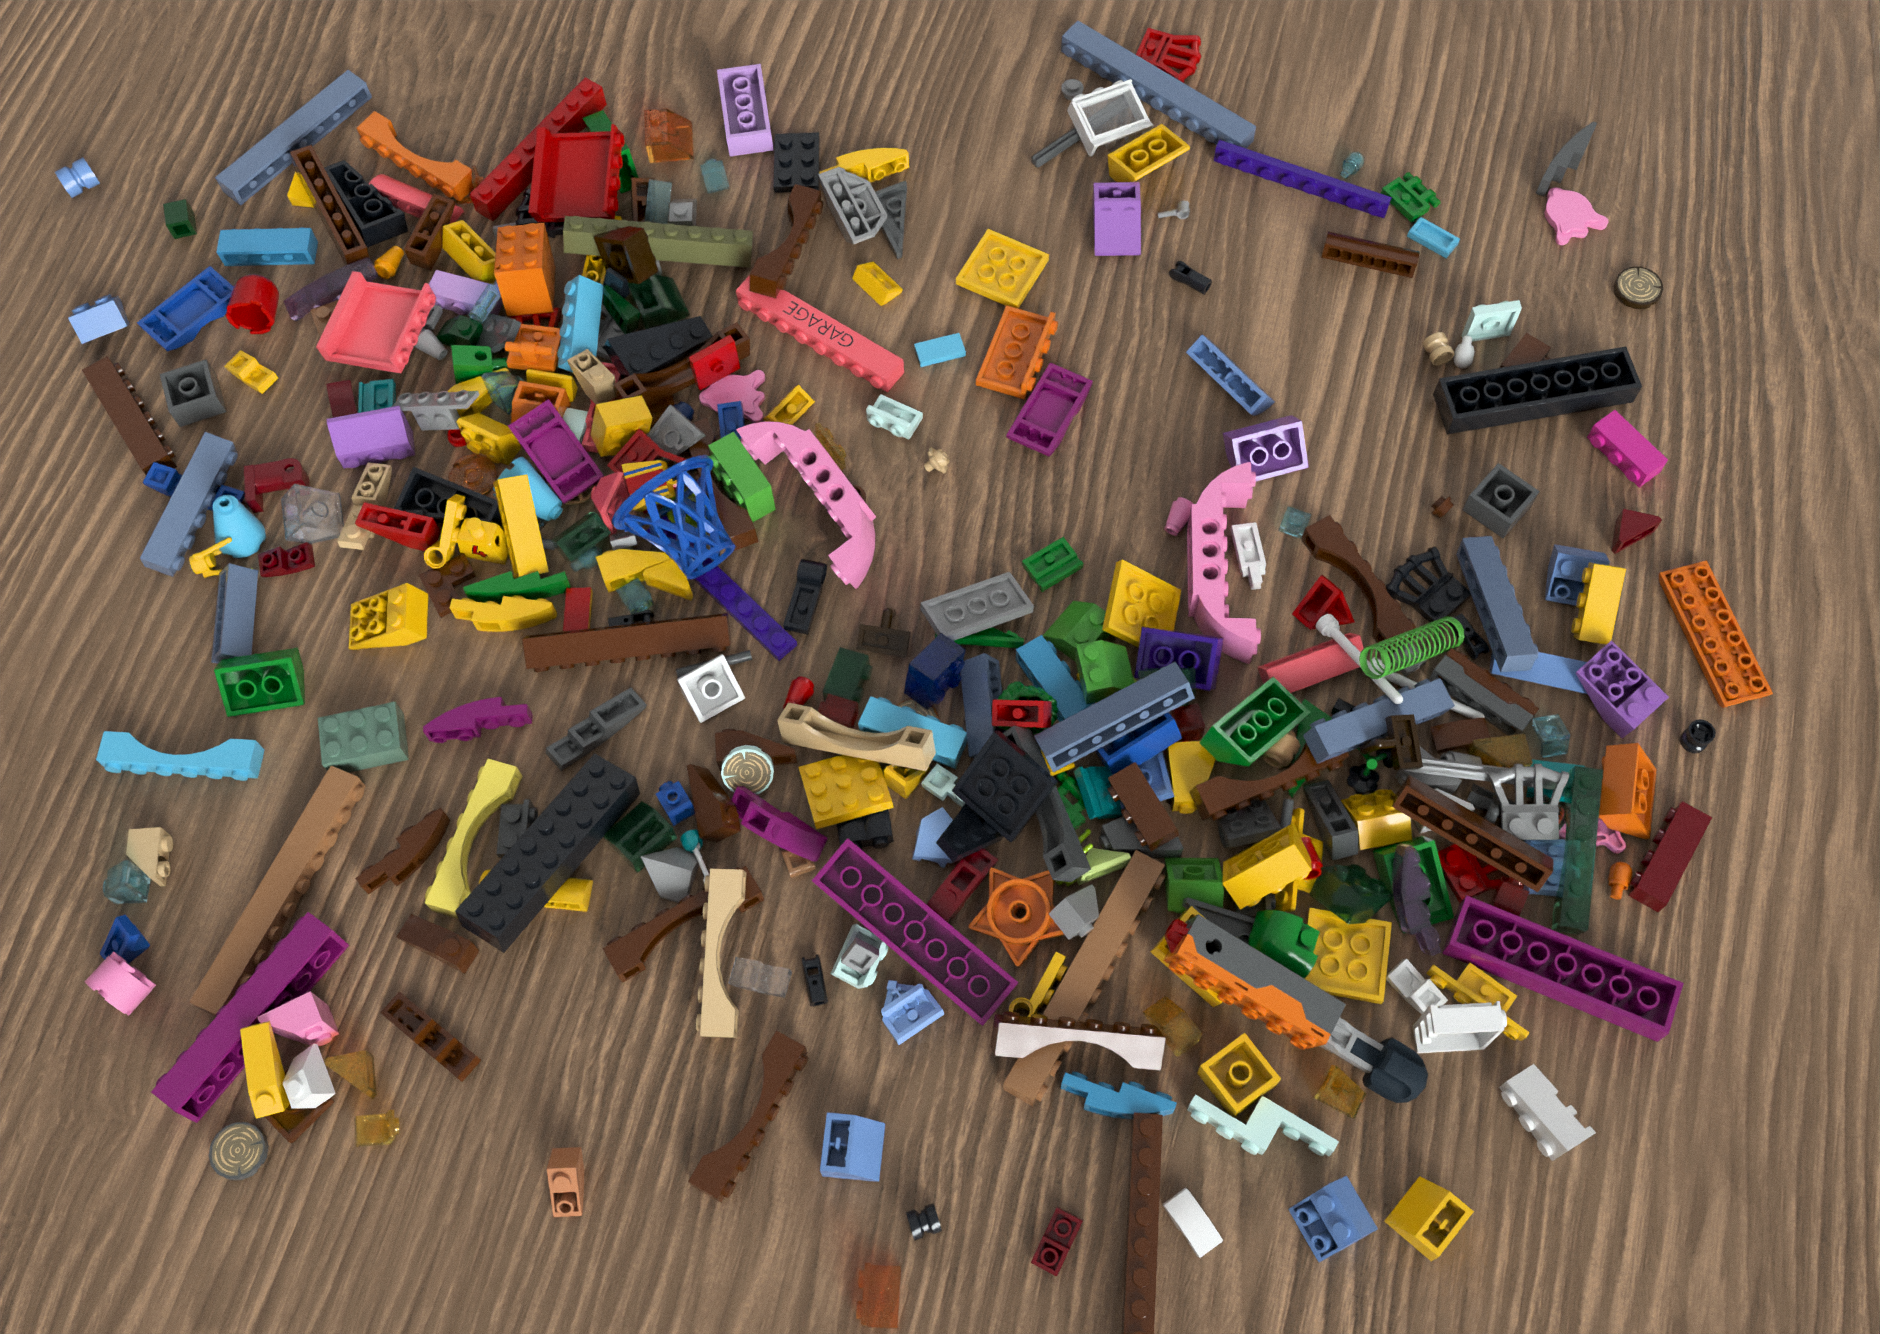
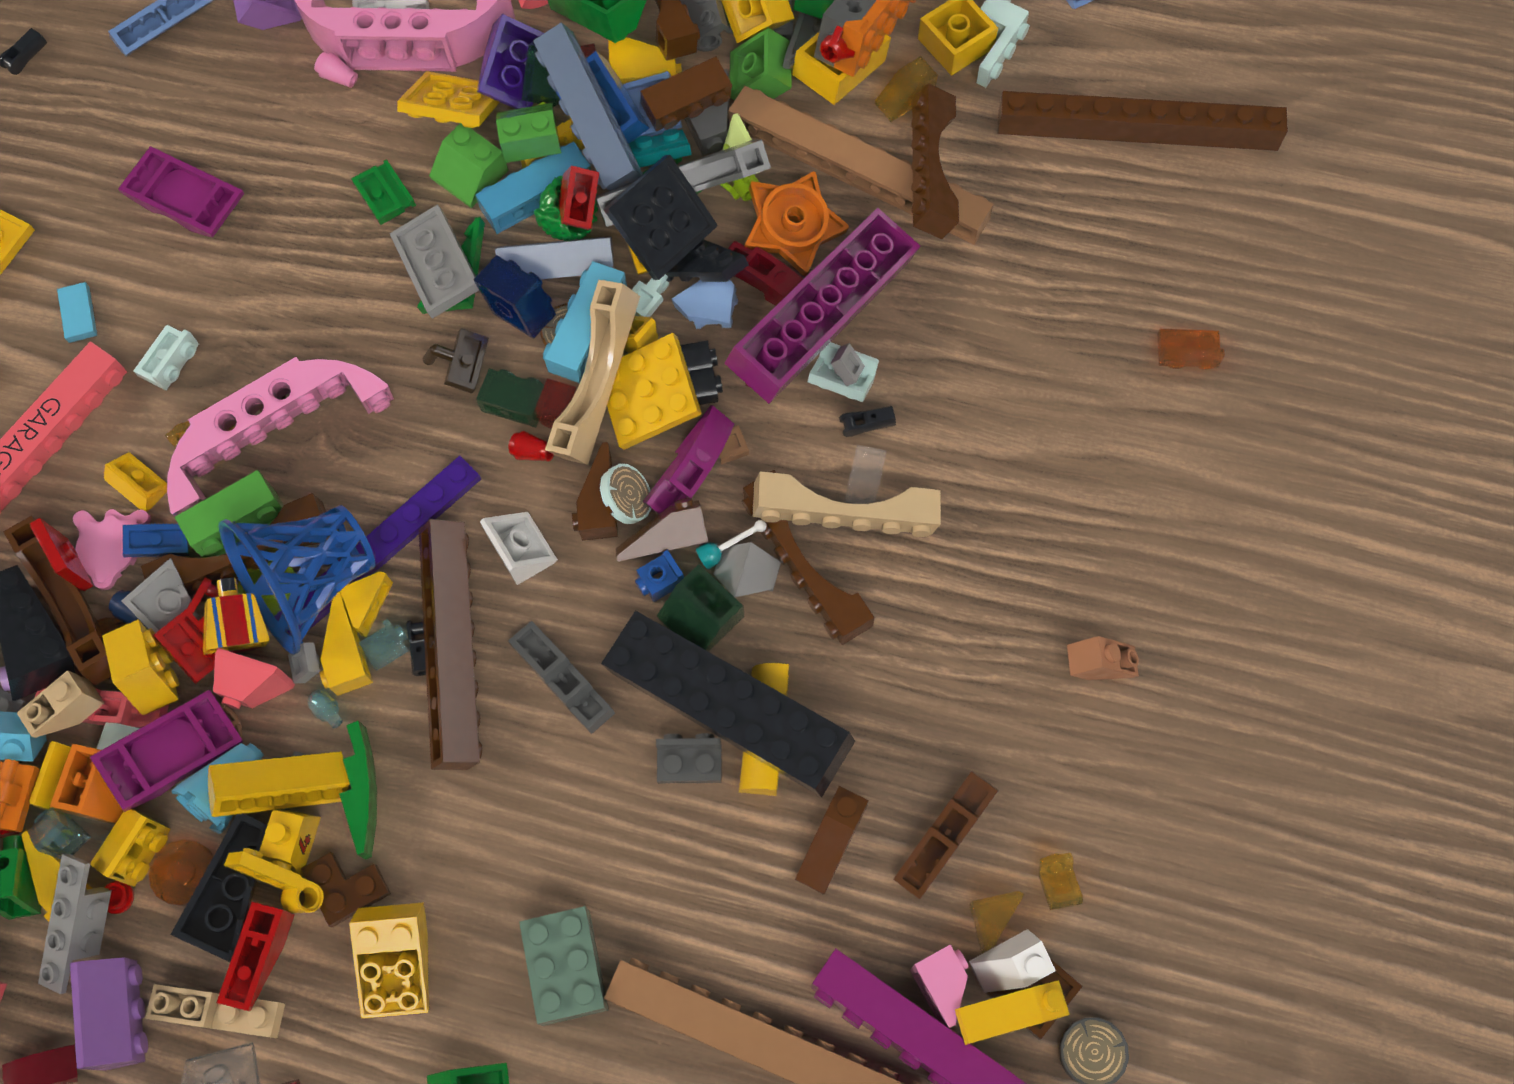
camera: 90 degrees left, 5 degrees up
(376, 395) = (41, 1022): teal plate -> none
(416, 847) = (710, 879): reddish brown slope -> none
(468, 719) = (545, 833): magenta slope -> none
(495, 786) = (764, 828): light yellow arch -> none
(511, 615) = (398, 793): yellow slope -> none
(577, 608) = (397, 715): red tile -> none
(581, 536) = (296, 712): clear green brick -> none
(719, 1168) = (1077, 501): reddish brown arch -> none
(731, 660) = (482, 549): dark grey bar -> none
(805, 596) = (403, 447): black plate -> none
(852, 1147) = (1048, 376): medium blue slope -> none
(908, 1010) = (897, 329): light blue slope -> none
(924, 1221) = (1115, 307): black wheel -> none
(937, 460) = (234, 308): tan plant -> none
(1016, 352) = (96, 225): orange bracket -> none
(1044, 991) = (869, 199): yellow plate -> none
(1057, 1241) = (1123, 197): dark red slope -> none
(1077, 912) = (797, 161): light grey slope -> none
(1107, 1102) = (983, 137): dark azure slope -> none
(1192, 1222) = (1096, 79): white slope -> none

